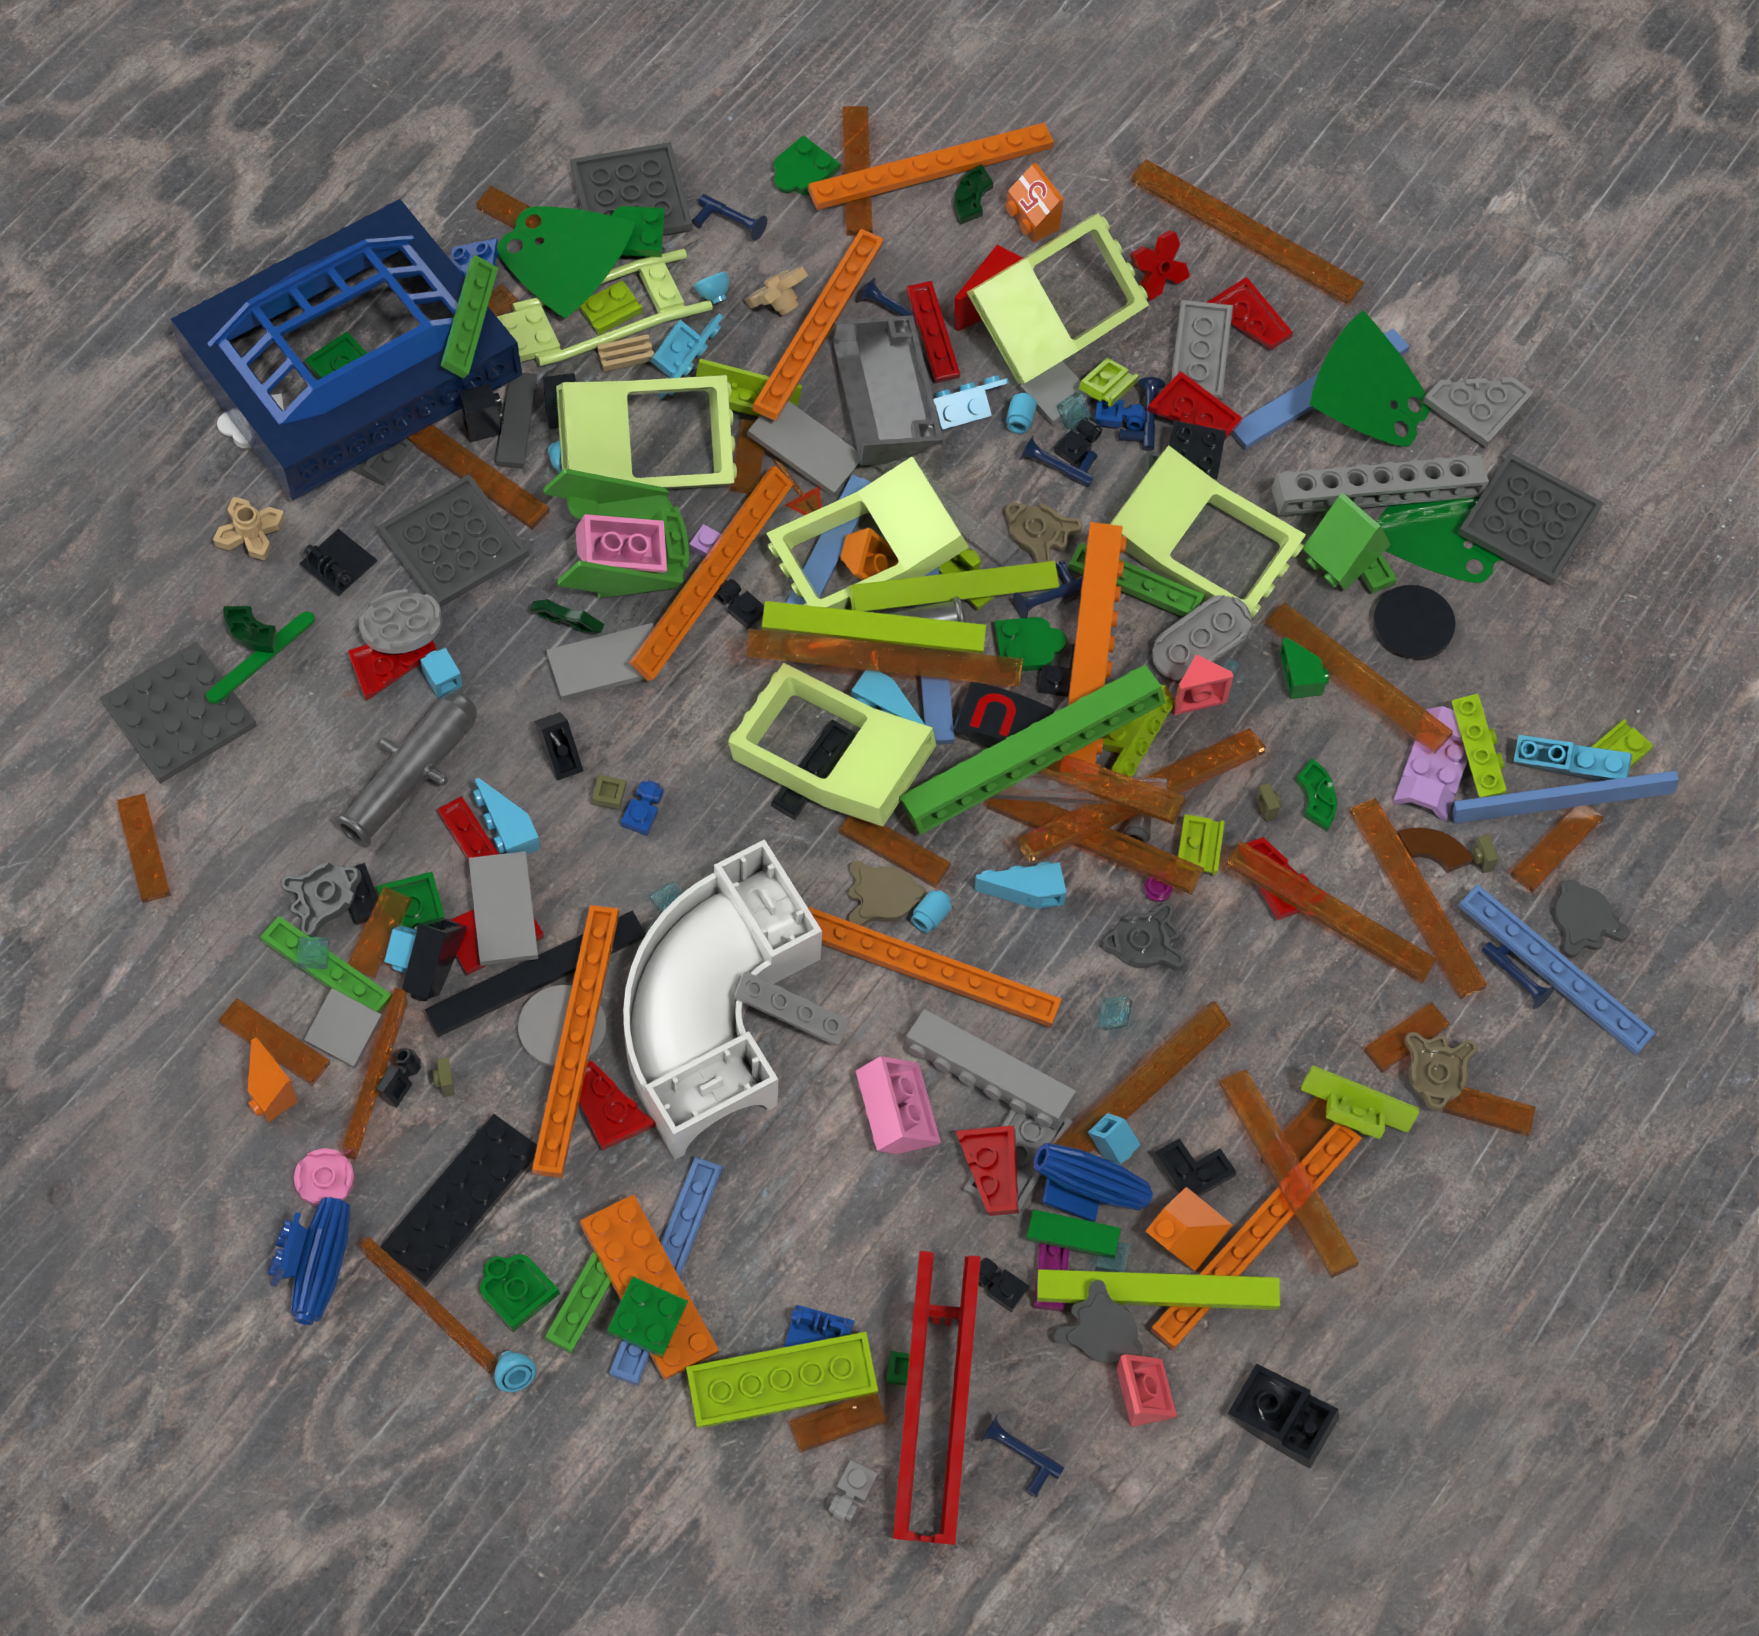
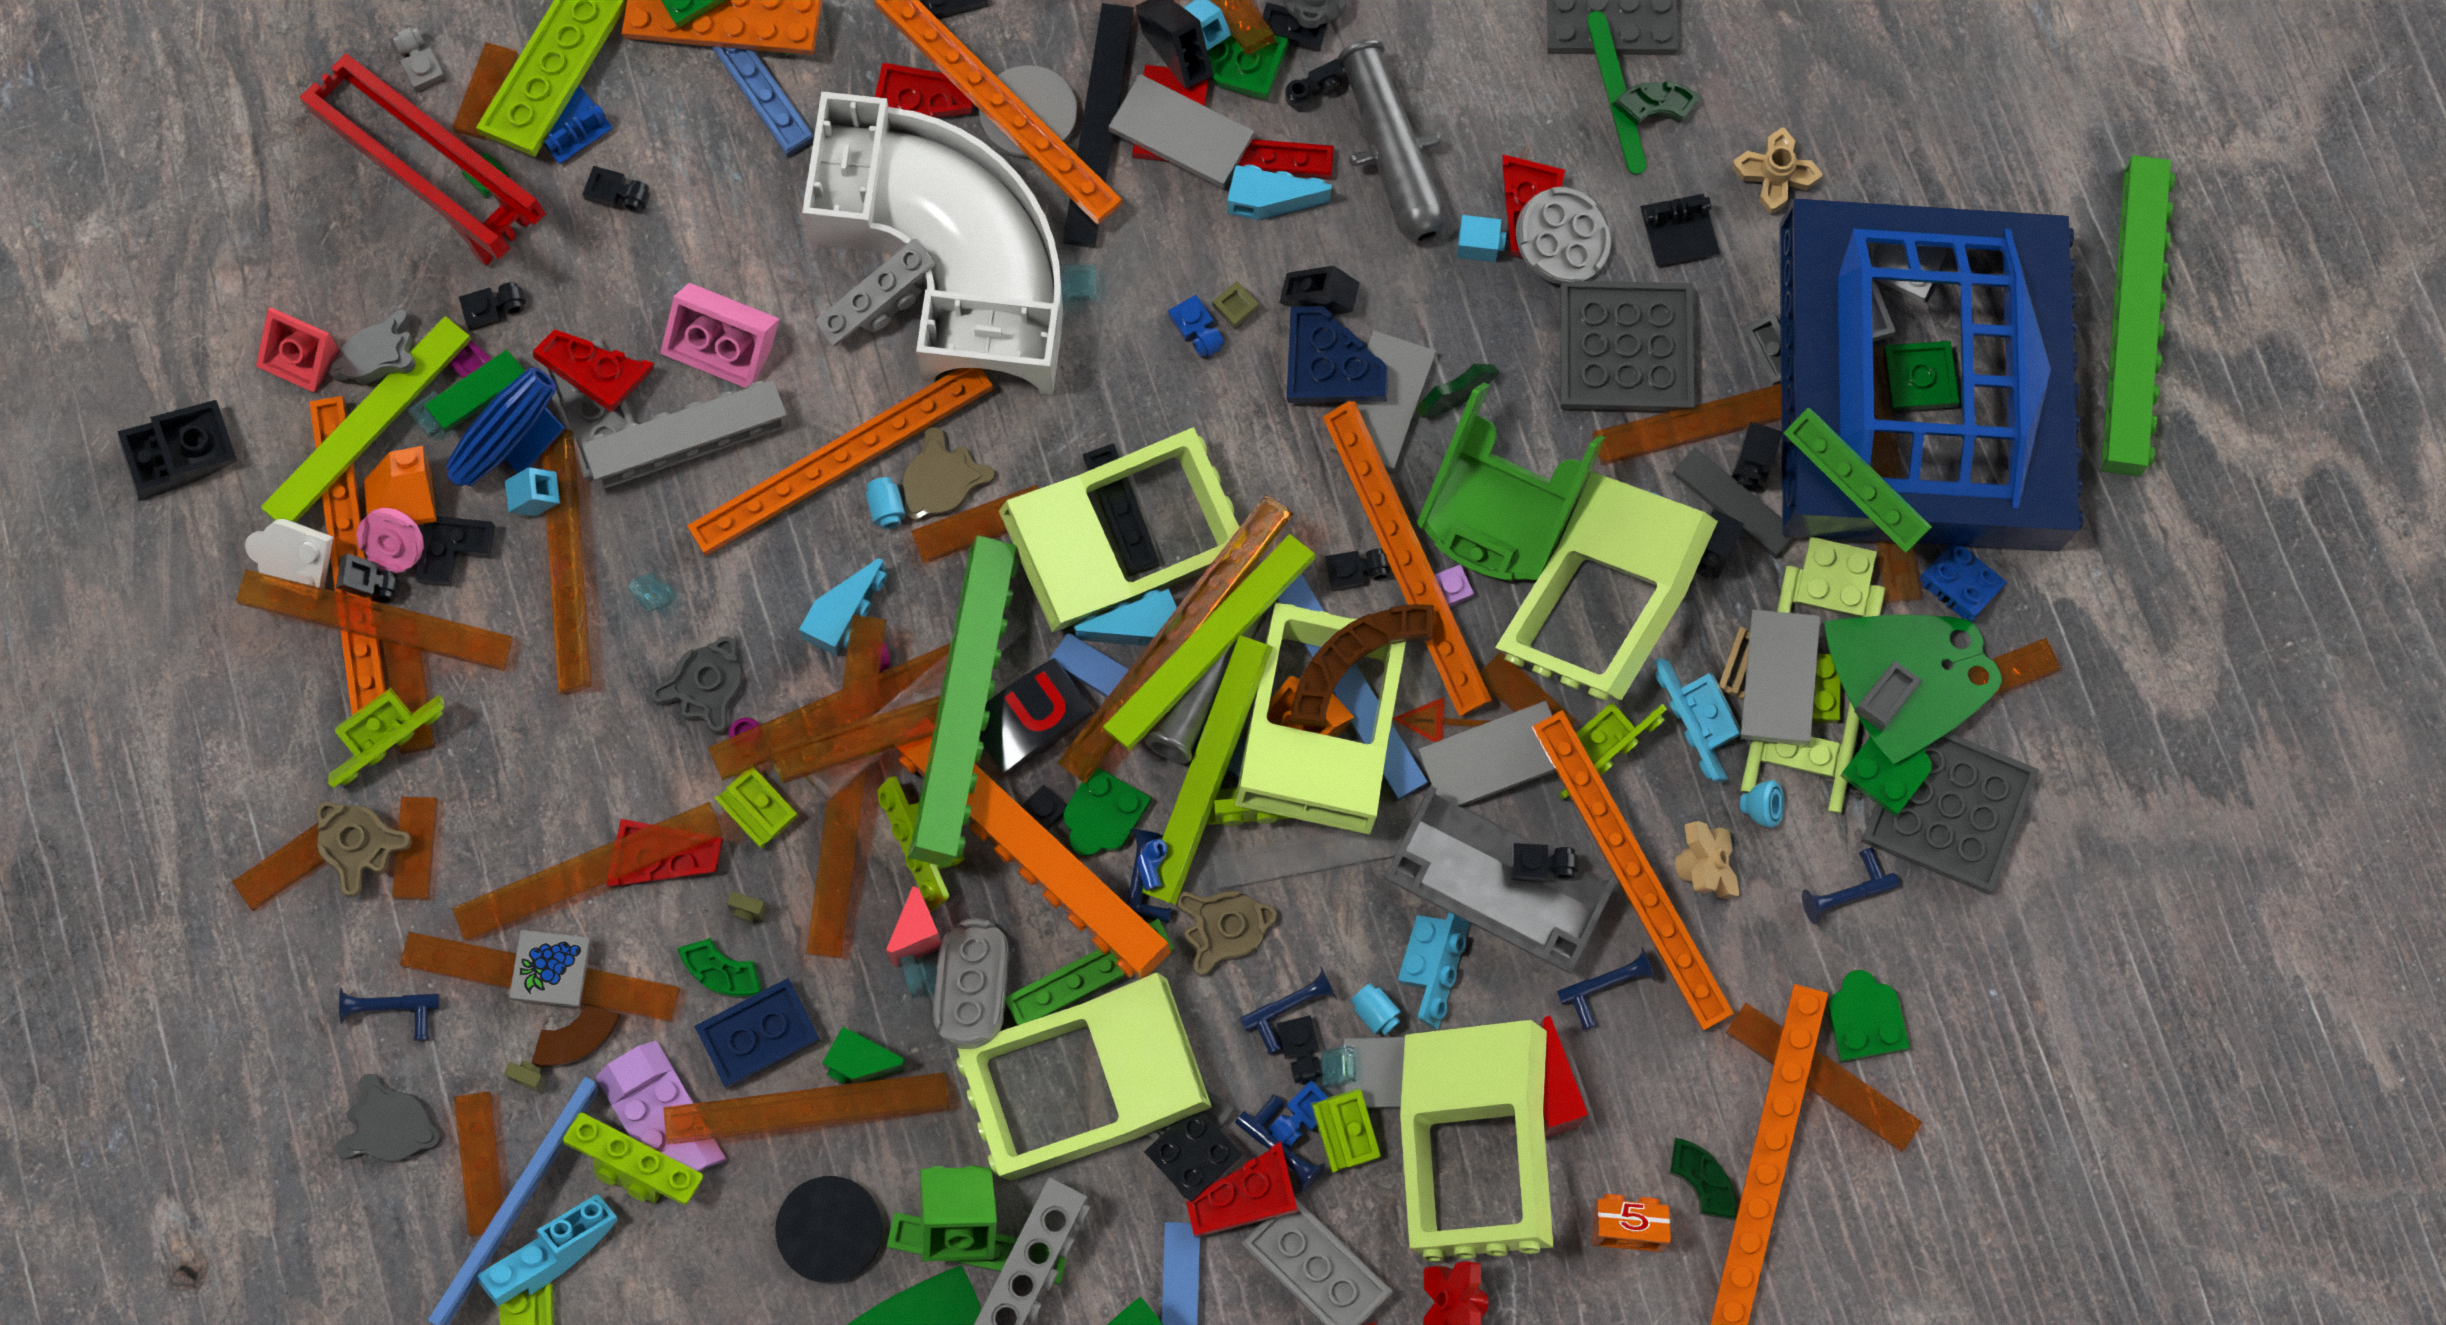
camera: 130 degrees right, 10 degrees up
(201, 270) = (2136, 316): none -> bright green brick
(392, 847) = (1322, 79): none -> black plate
(591, 251) = (1888, 695): none -> dark grey tile
(607, 703) = (1330, 361): none -> dark blue plate
(622, 542) = (1487, 474): bright pink slope -> none
(623, 319) = (1780, 677): none -> light grey tile
(811, 552) = (1347, 648): none -> reddish brown tile
(847, 1269) = (608, 186): none -> black plate
(856, 380) = (1532, 862): none -> black plate
(933, 332) = (1544, 992): red tile -> none
(1040, 587) = (1149, 861): none -> blue arm
(1045, 1464) = (307, 226): dark blue piece -> none
(1228, 1200) = (390, 539): none -> bright pink tile
(1266, 1198) = (360, 578): none -> black plate
(1292, 1262) = (291, 552): none -> white plate
(1338, 741) = (757, 1033): none -> dark blue plate
(1409, 887) = (550, 968): none -> light grey tile
(1556, 969) = (358, 1044): medium blue tile -> none

